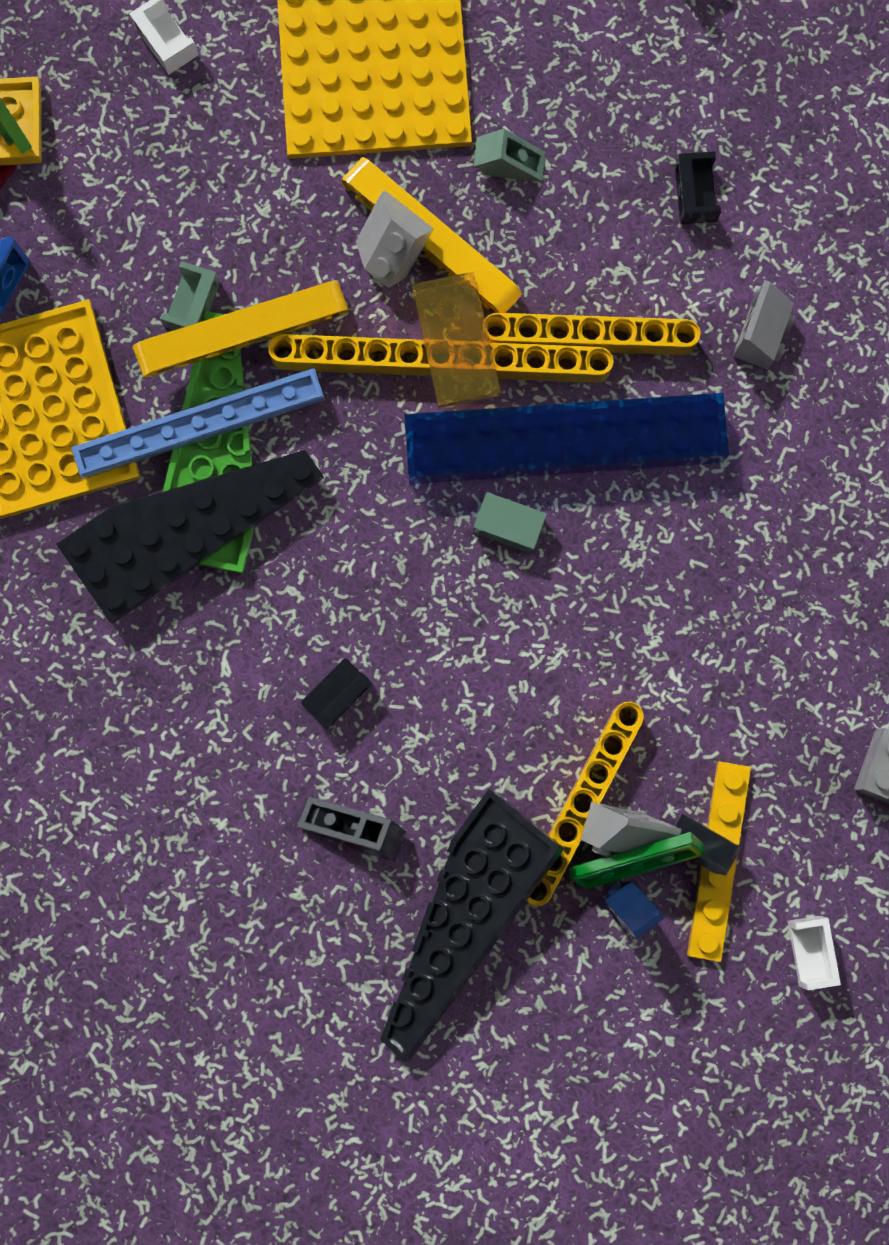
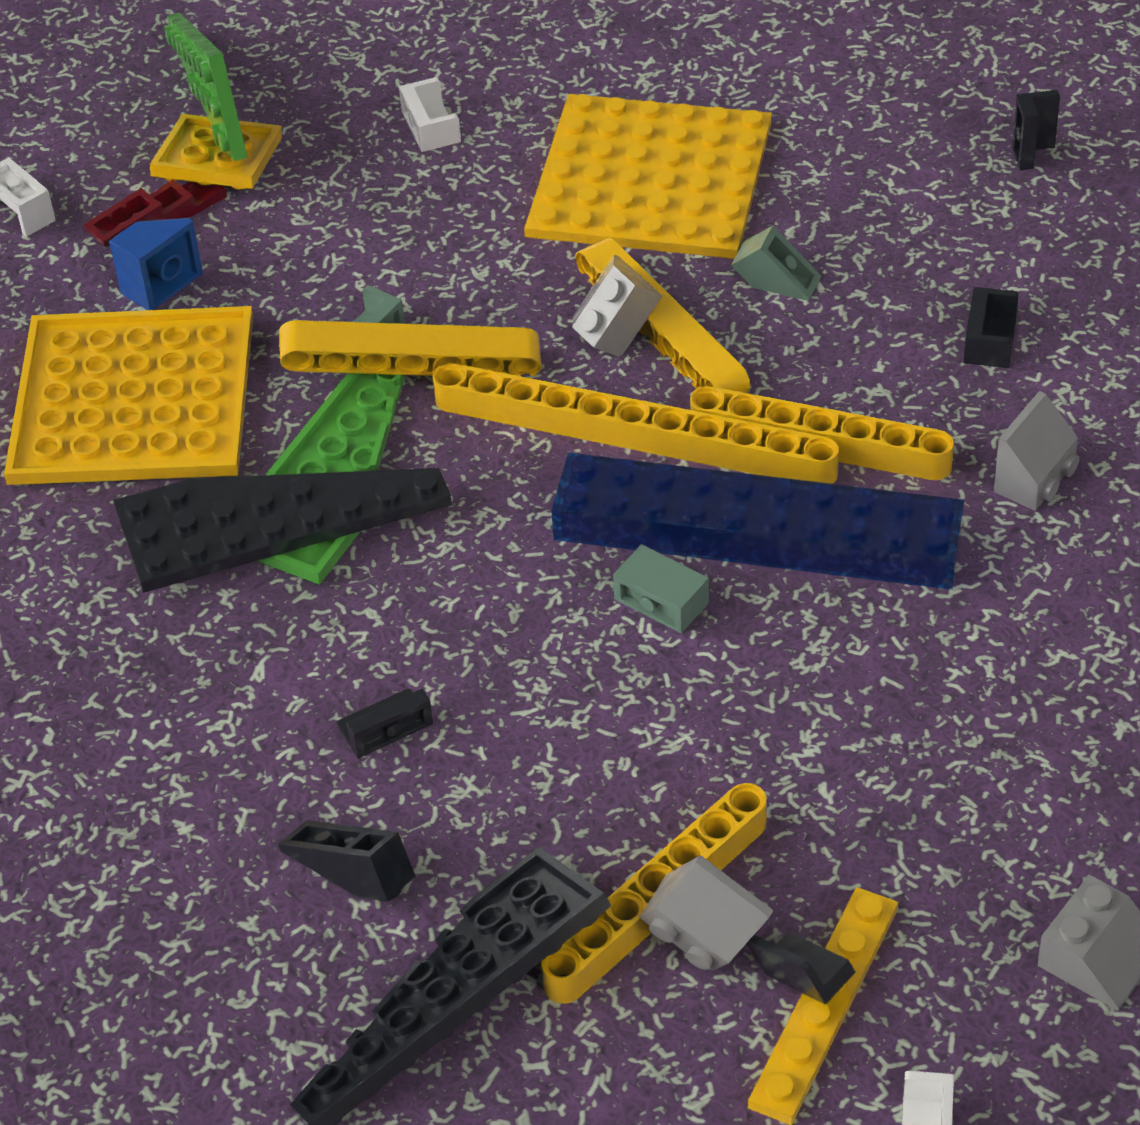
camera: 20 degrees right, 35 degrees down
(197, 423) = (325, 427): medium blue tile -> none
(456, 339) = (654, 398): clear yellow tile -> none
(631, 908) = (684, 1011): dark blue slope -> none
(637, 861) = (705, 947): green tile -> none

